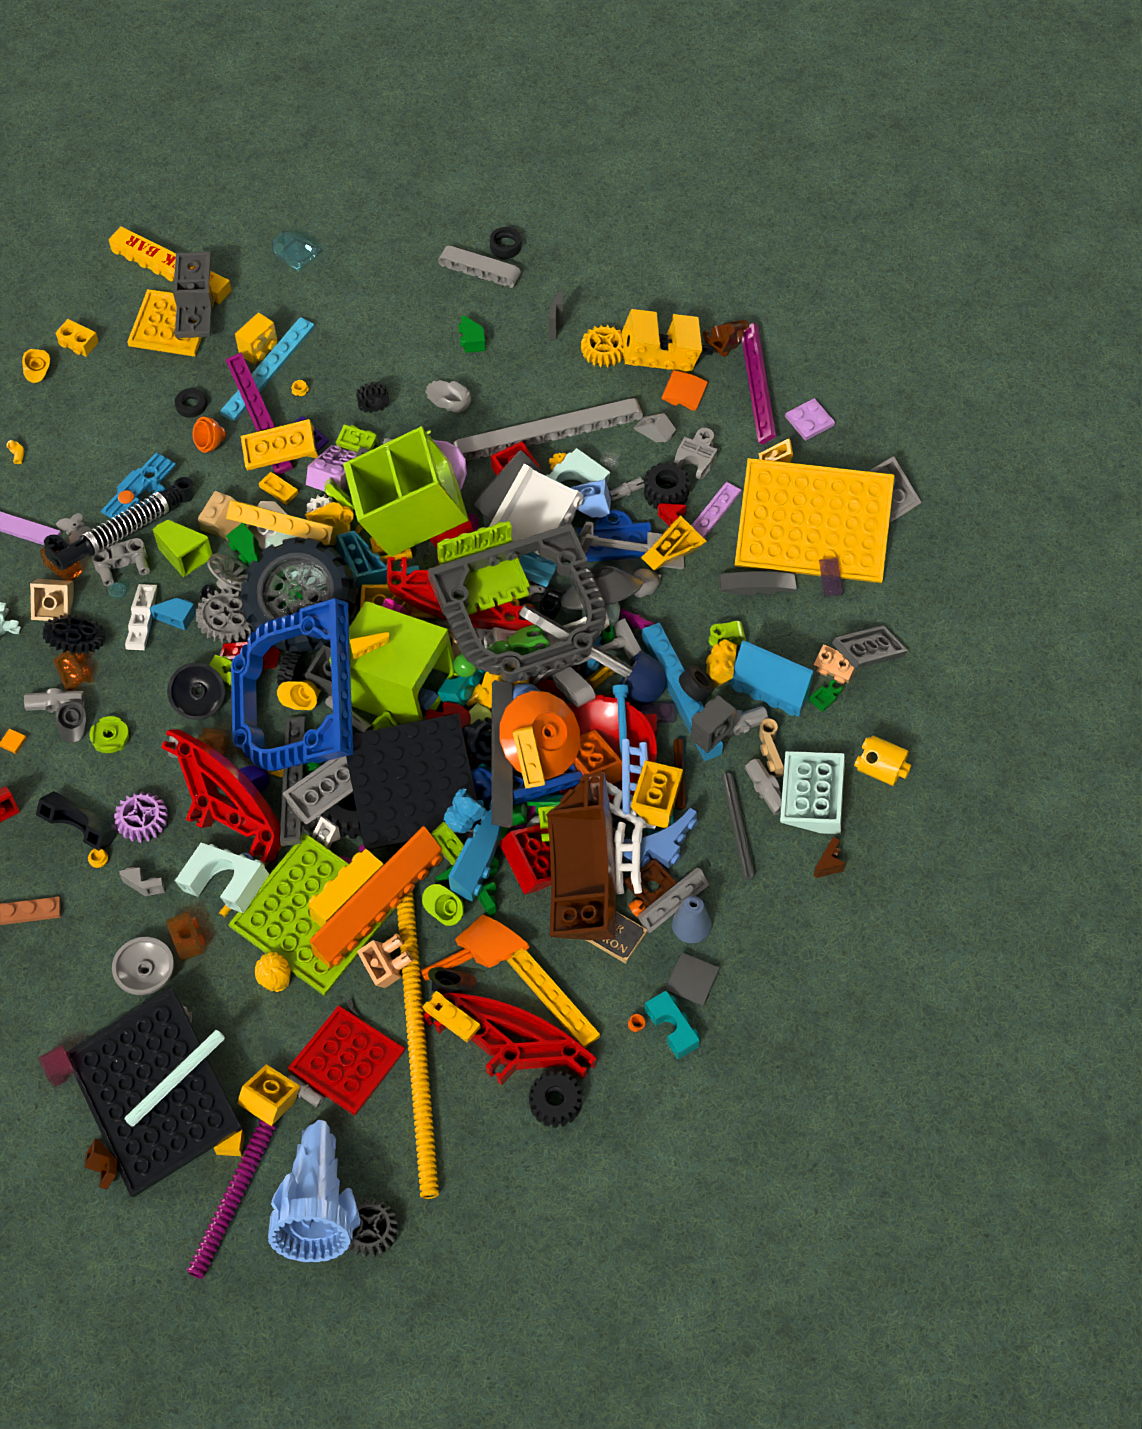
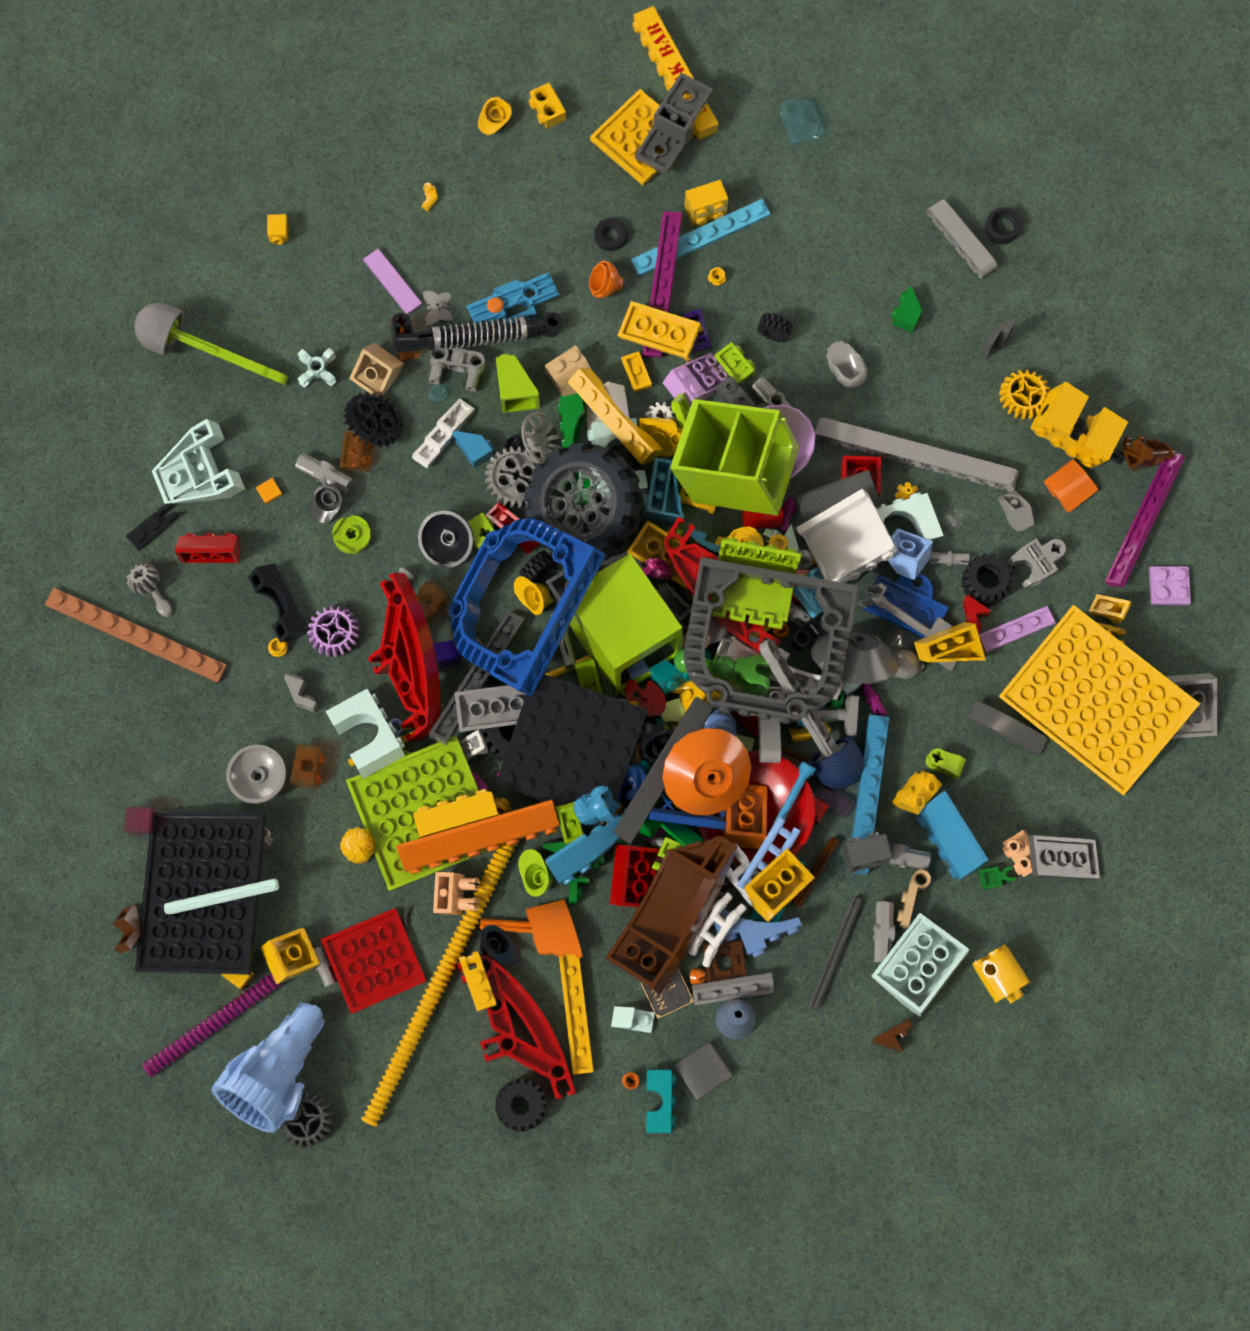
camera: 30 degrees right, 15 degrees up
(366, 644) = (600, 602): yellow slope -> none
(529, 757) = (680, 792): yellow plate -> none
(603, 974) = (632, 1019): none -> light aqua slope
(696, 683) = (873, 797): black tyre -> none
(830, 577) = (1077, 763): plate -> none

